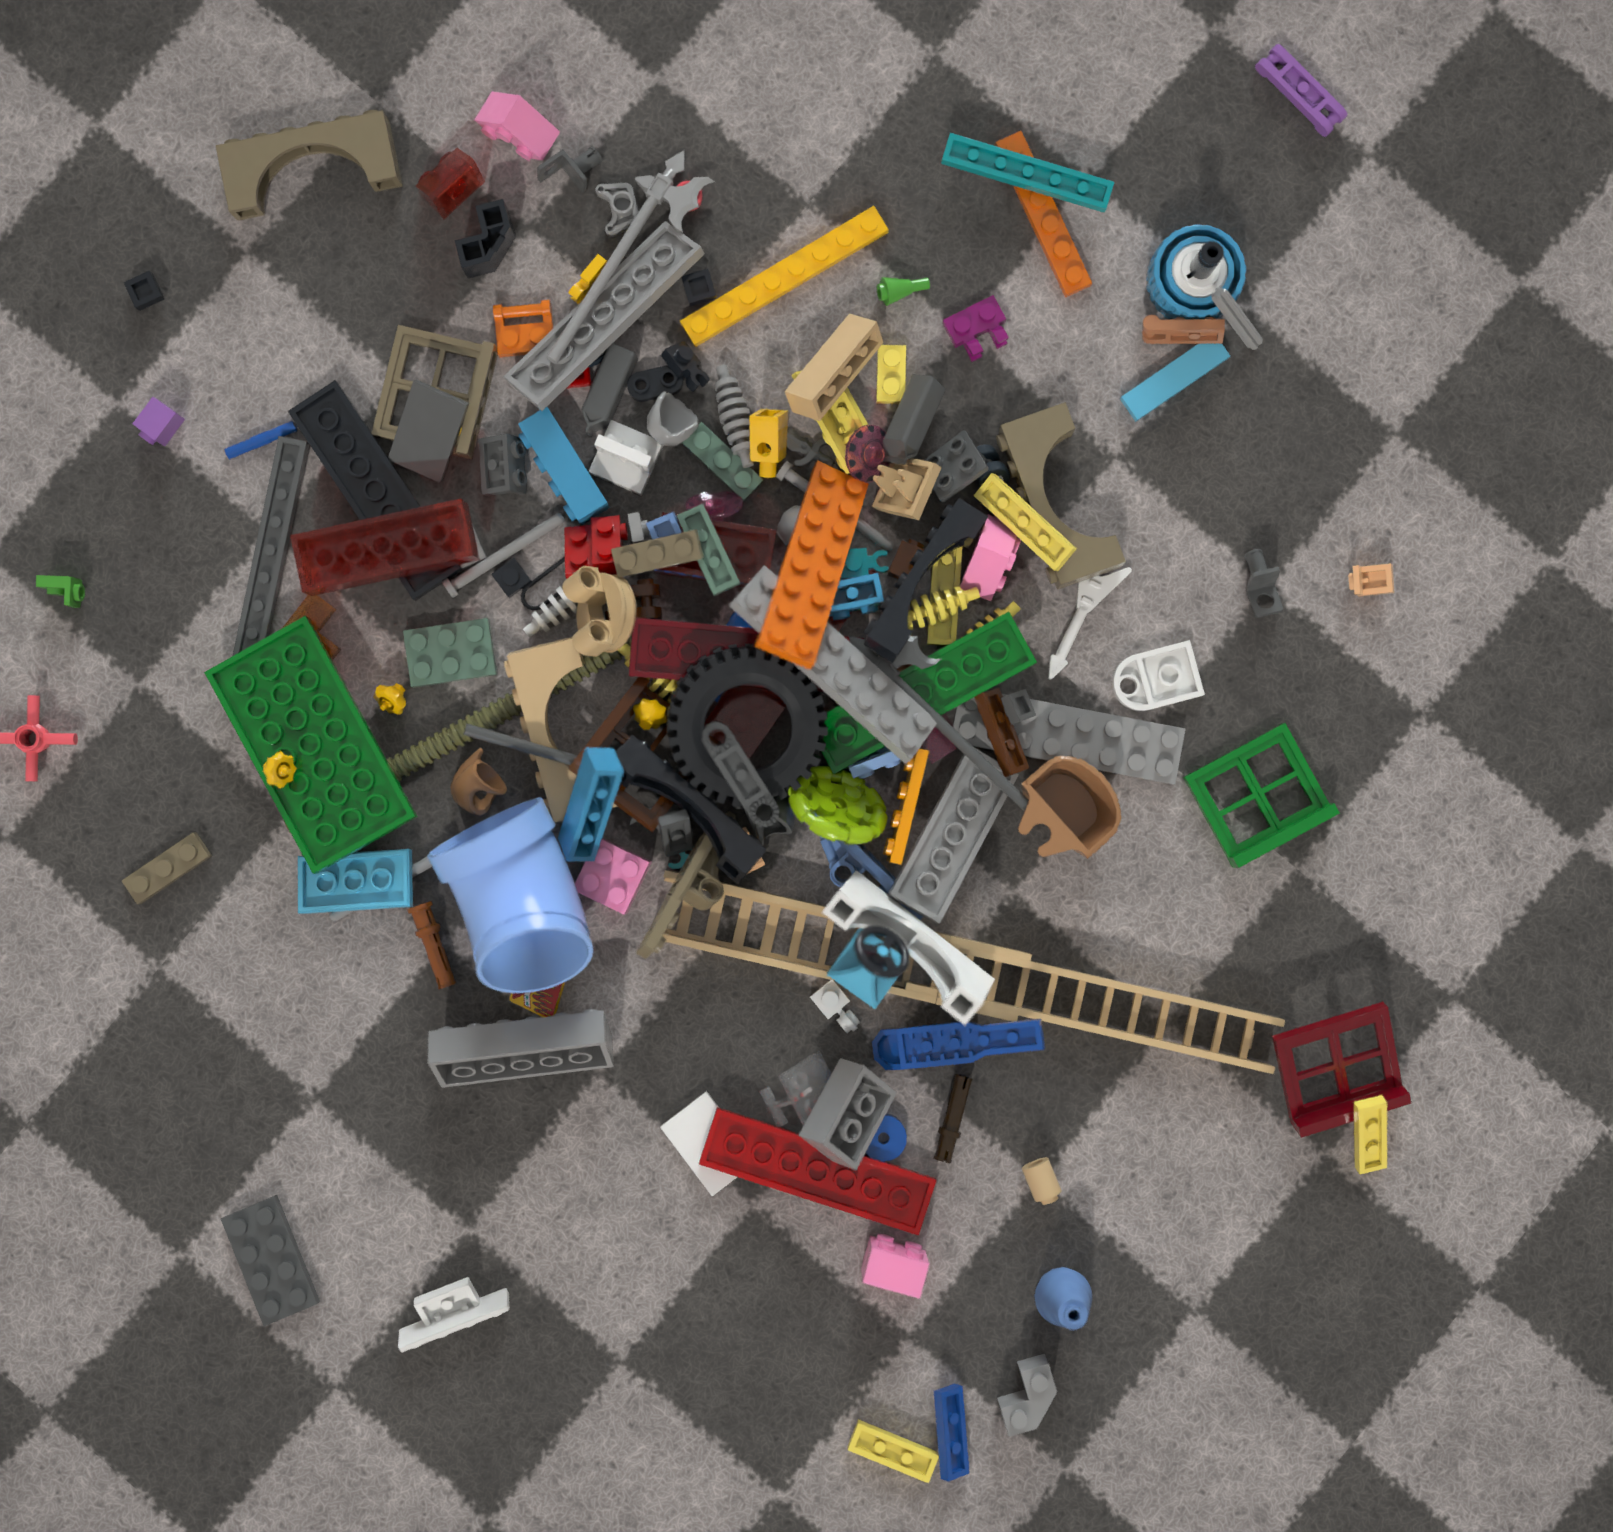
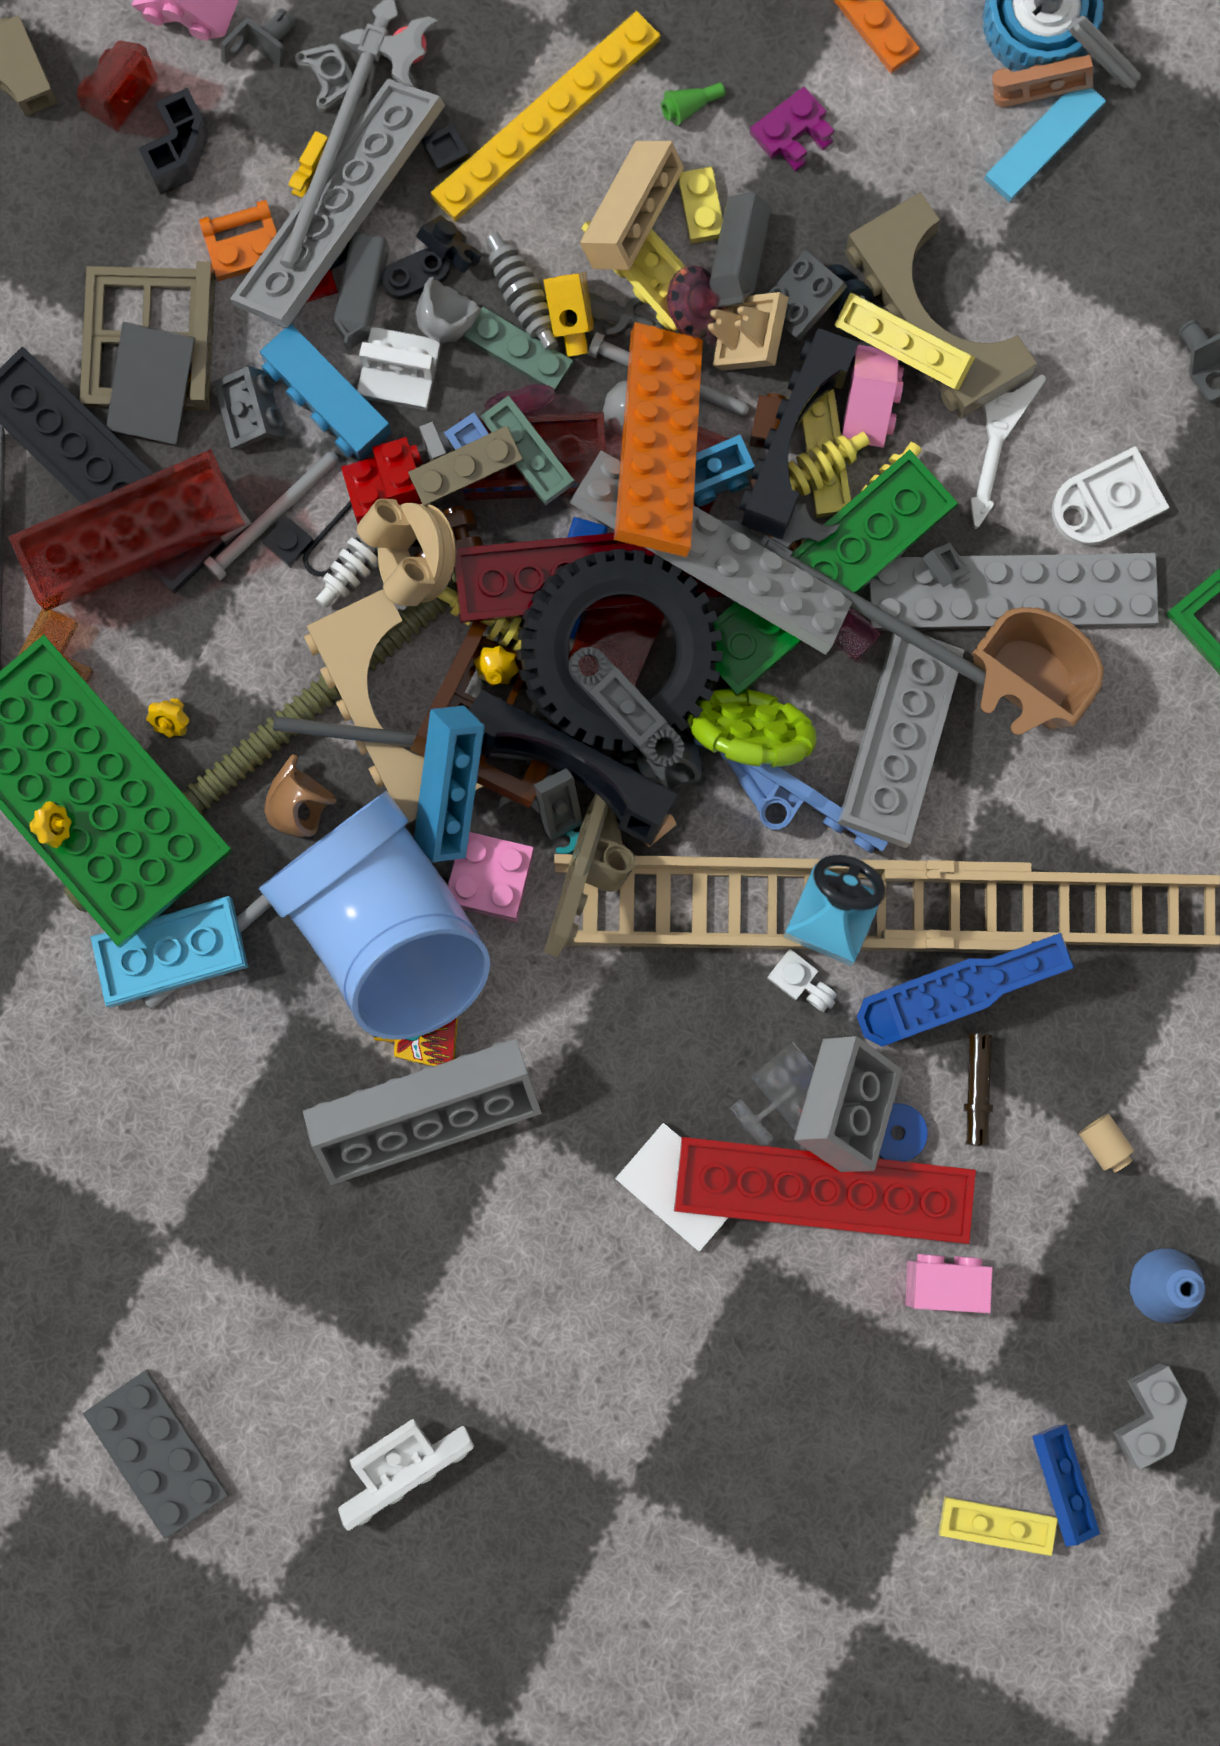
camera: 15 degrees left, 5 degrees down
(428, 931) = (274, 996): dark orange pin -> none
(450, 652) = (230, 648): sand green plate -> none
(859, 563) = (713, 431): teal plate -> none
(878, 759) = (799, 660): light blue plate -> none
(902, 818) = (835, 701): light orange plate -> none
(959, 979) = (947, 903): white arch -> none
(1001, 733) = (932, 600): reddish brown plate -> none

